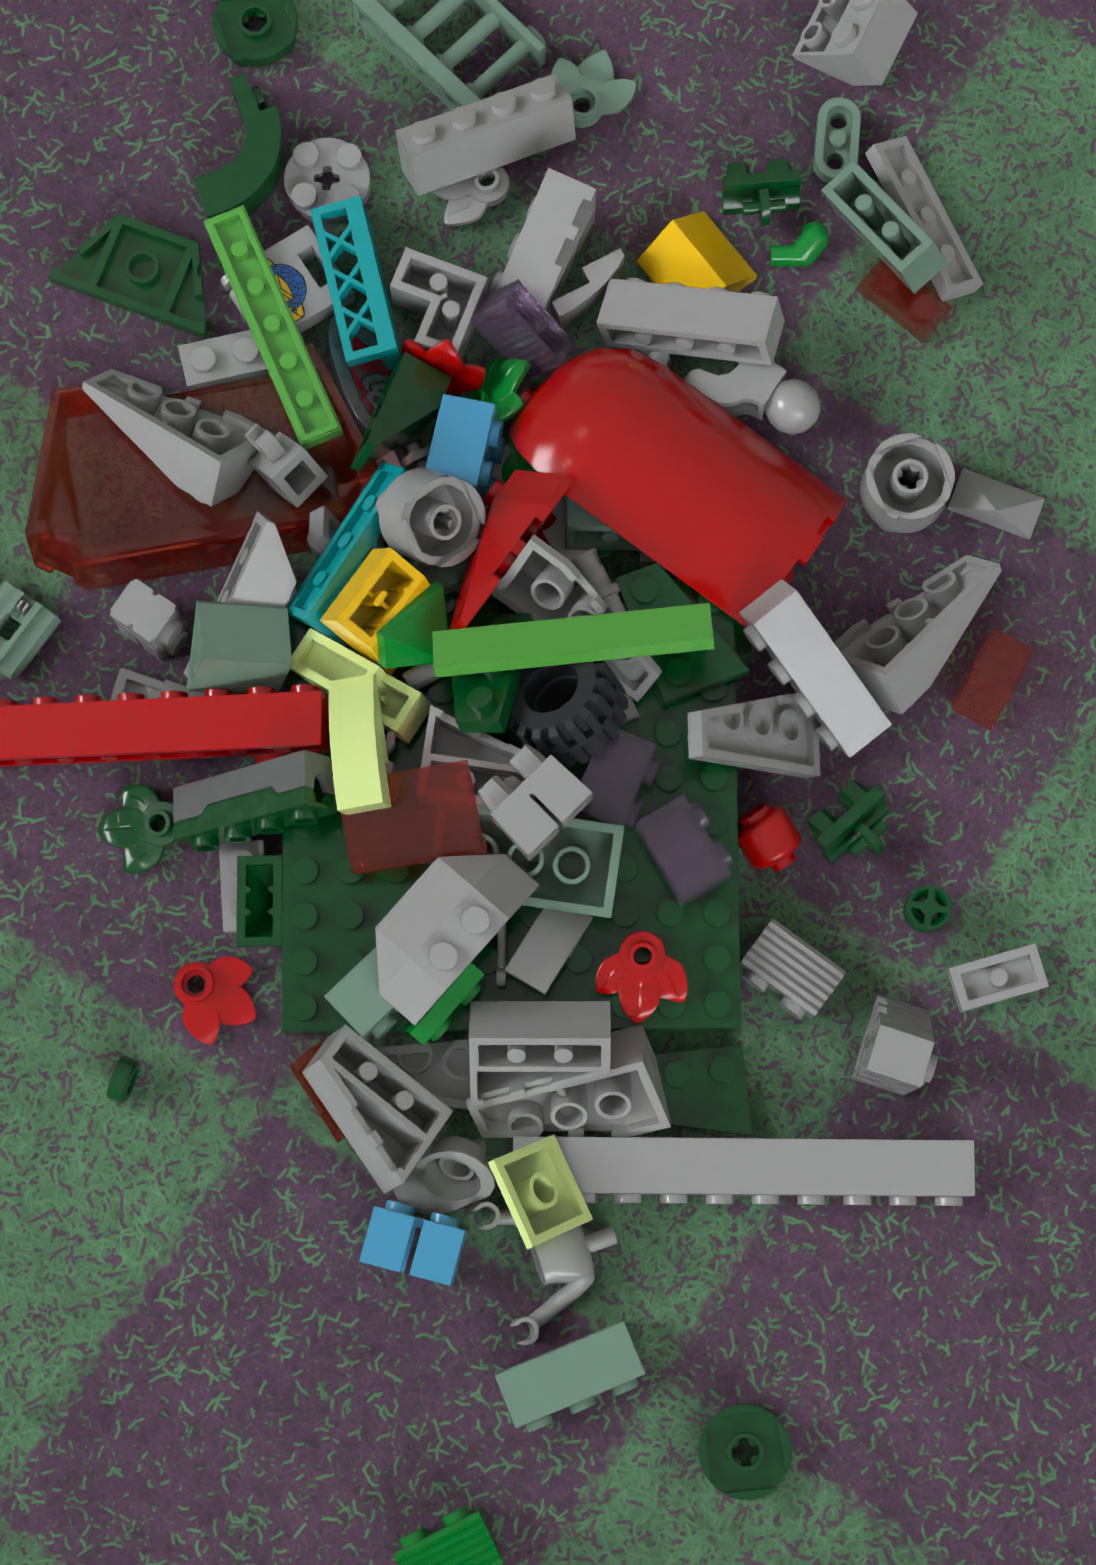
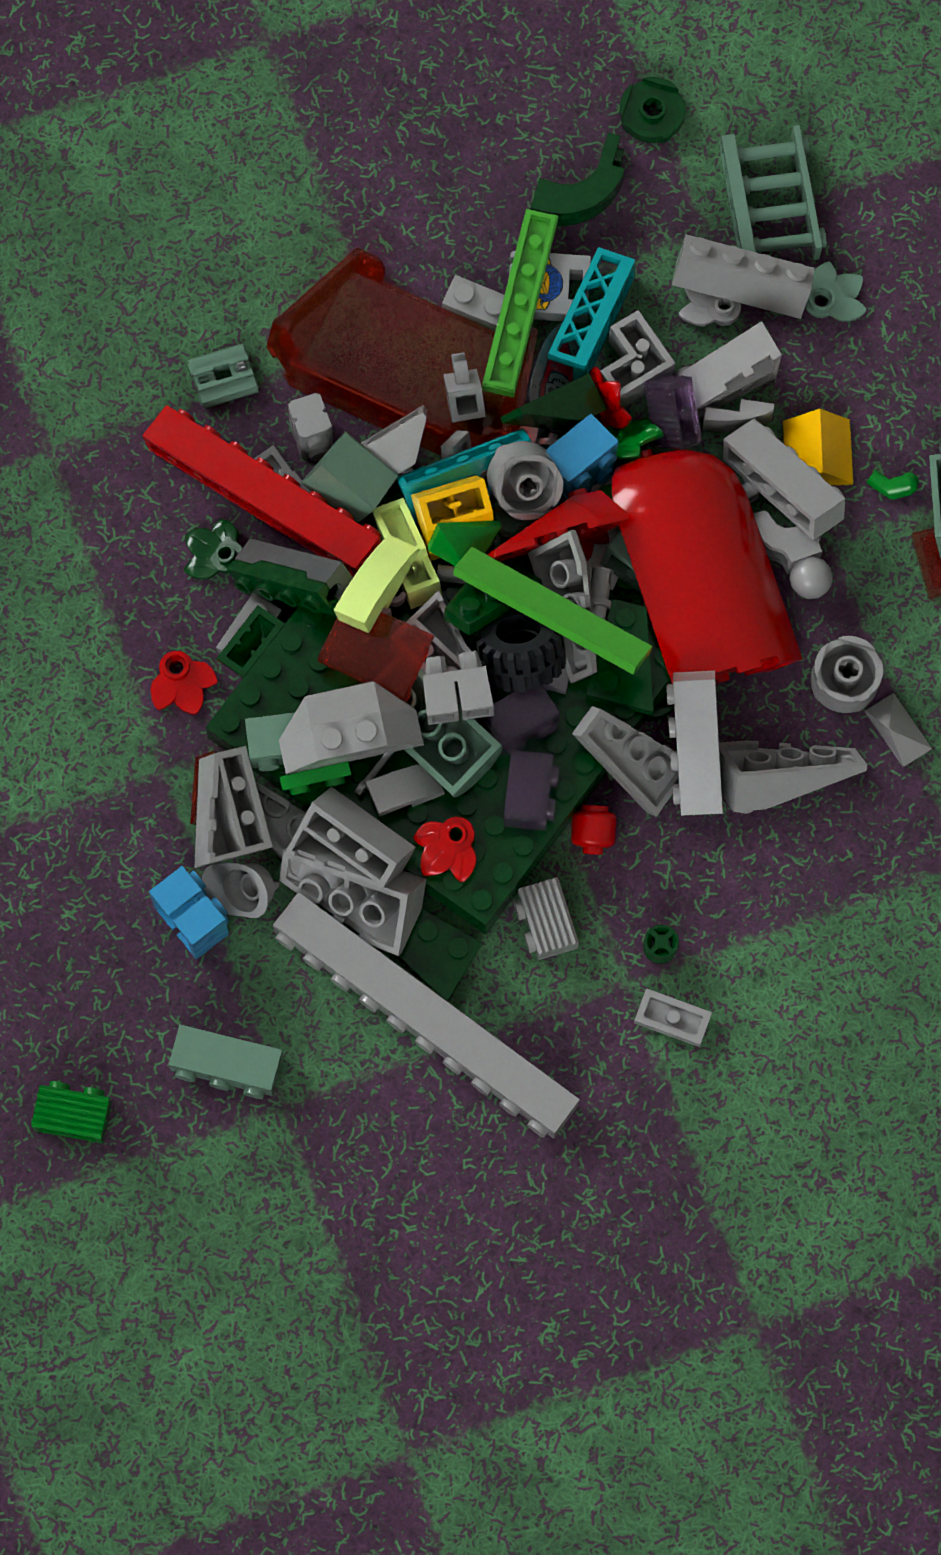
camera: 35 degrees right, 5 degrees down
(123, 1079) = (89, 691): dark green tile -> none
(141, 273) = (465, 214): dark green wing -> none
(188, 444) = (413, 331): light grey wedge -> none
(320, 157) = (622, 219): light grey plate -> none
(540, 1191) = (287, 932): yellowish green slope -> none
(557, 1261) = (274, 984): light grey piece -> none
(761, 192) = (893, 432): dark green hips -> none
(765, 1468) = (292, 1166): dark green plate -> none
(856, 828) = (653, 861): dark green hips -> none
(896, 1047) = (571, 1008): light grey wedge -> none
(992, 678) = (810, 833): clear red slope -> none

